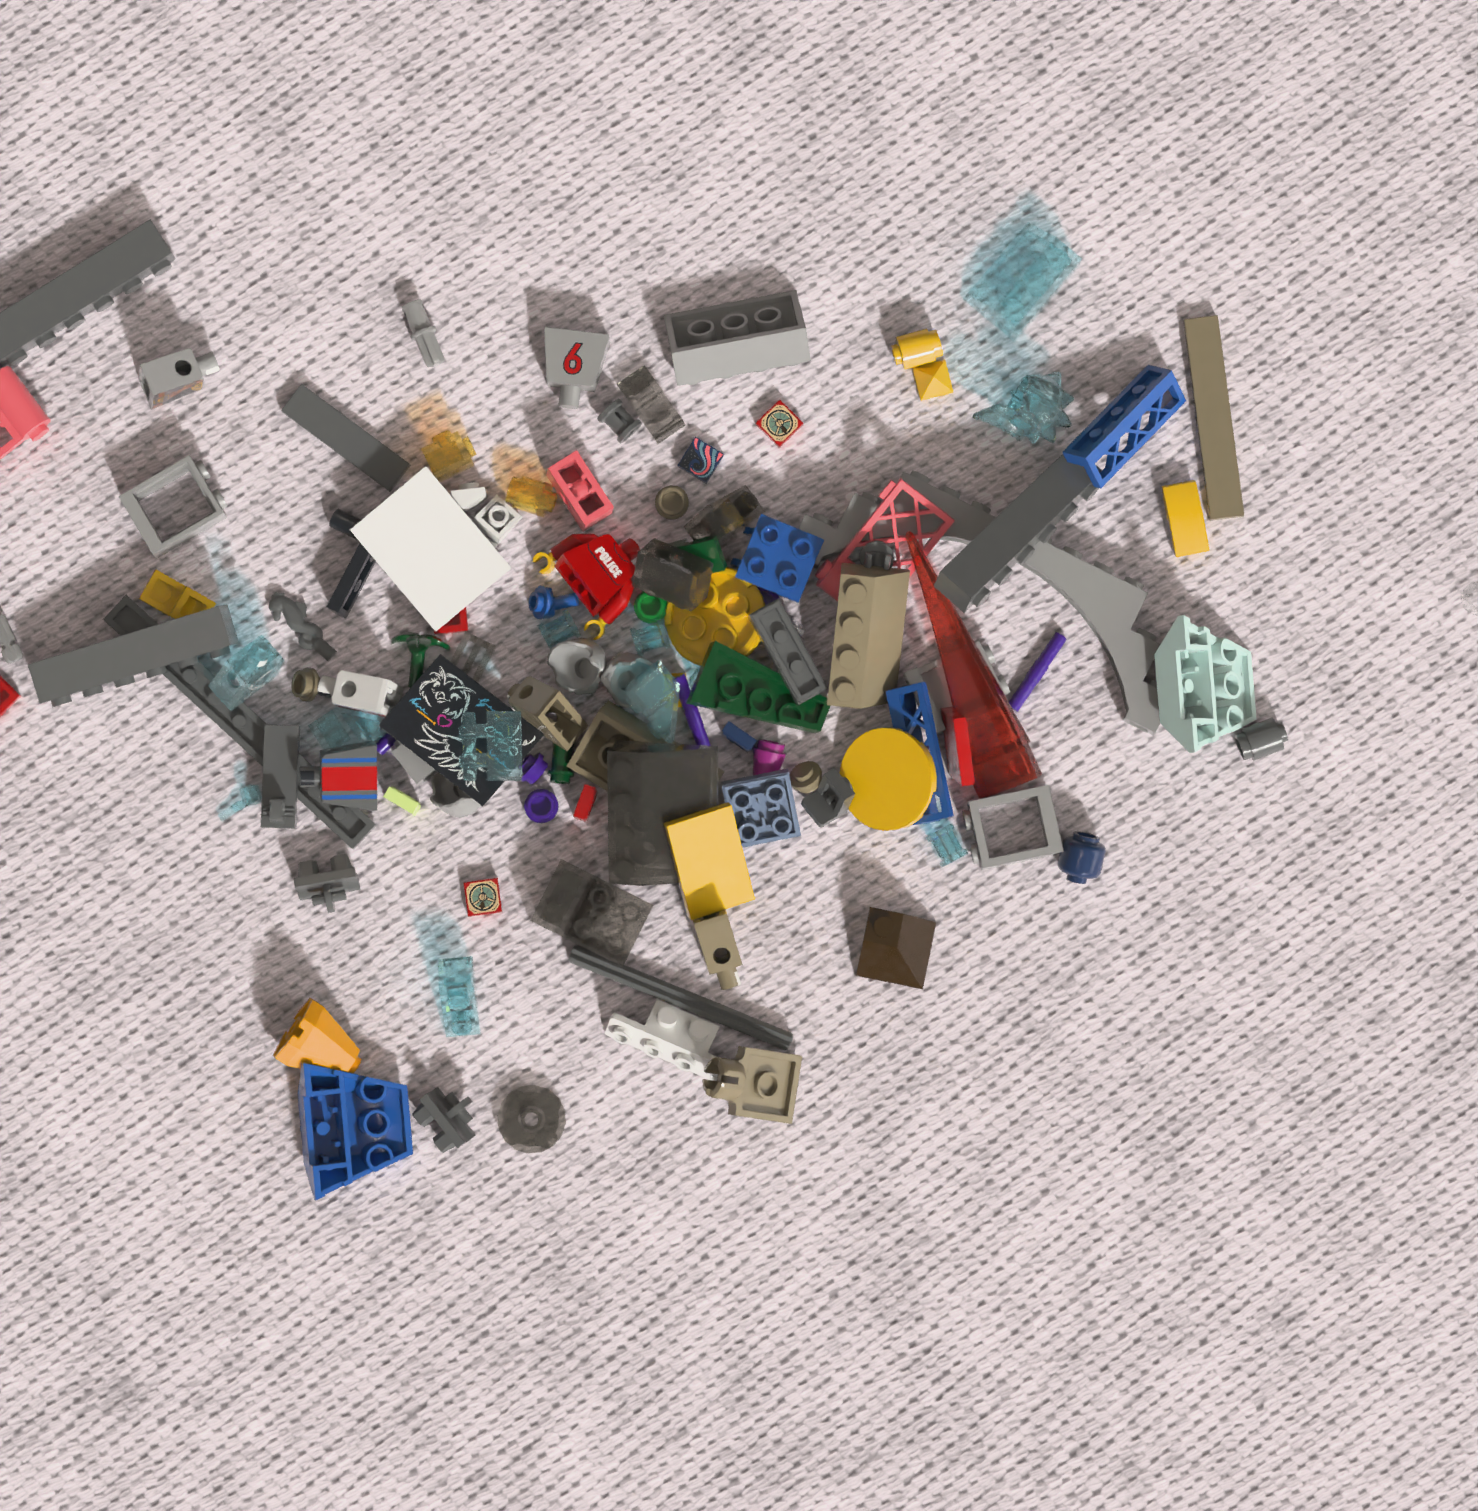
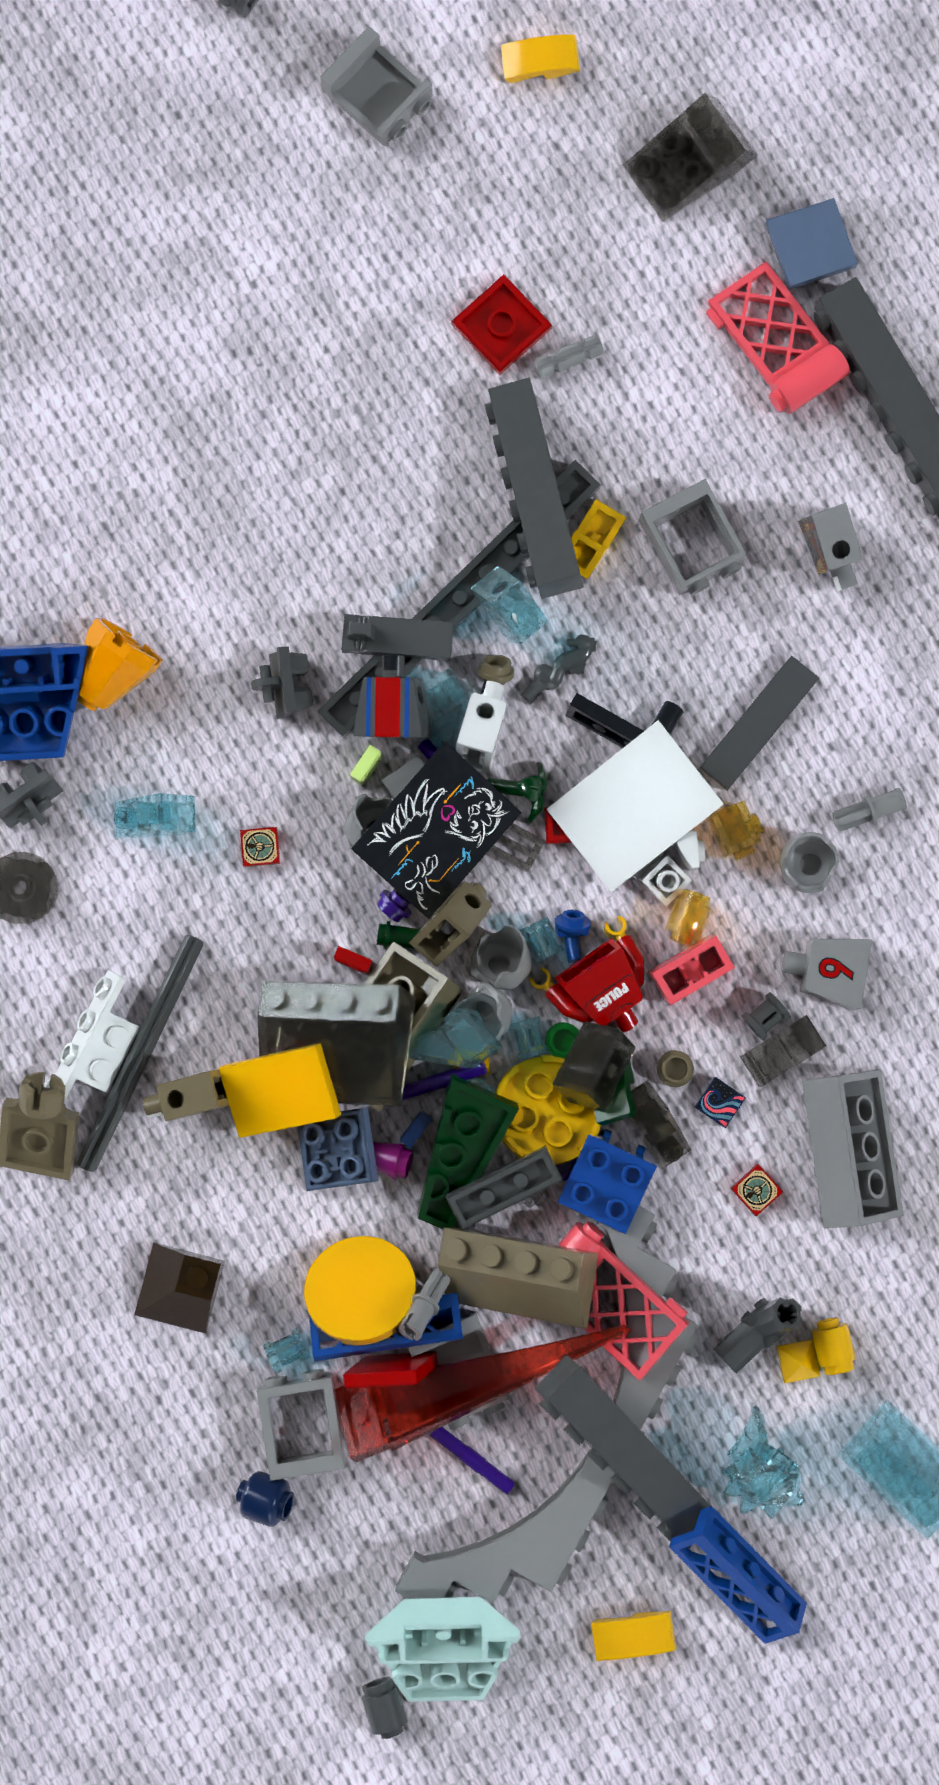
camera: 90 degrees right, 0 degrees up
(250, 797) = (380, 606): clear light blue hand -> none
(475, 387) = (808, 862): none -> light grey hair
(503, 746) = (415, 873): clear light blue plate -> none
(541, 806) = (354, 913): dark purple plate -> none
(591, 913) = (233, 961): clear smoke slope -> none
(806, 777) = (369, 1200): dark tan plate -> none
(830, 799) = (342, 1224): dark grey bracket -> none
(877, 554) = (605, 1292): dark grey plate -> none
(897, 717) = (424, 1306): none -> light grey axle
(906, 416) = (759, 1330): none -> dark grey piece
(1213, 418) = (744, 1673): dark tan tile -> none

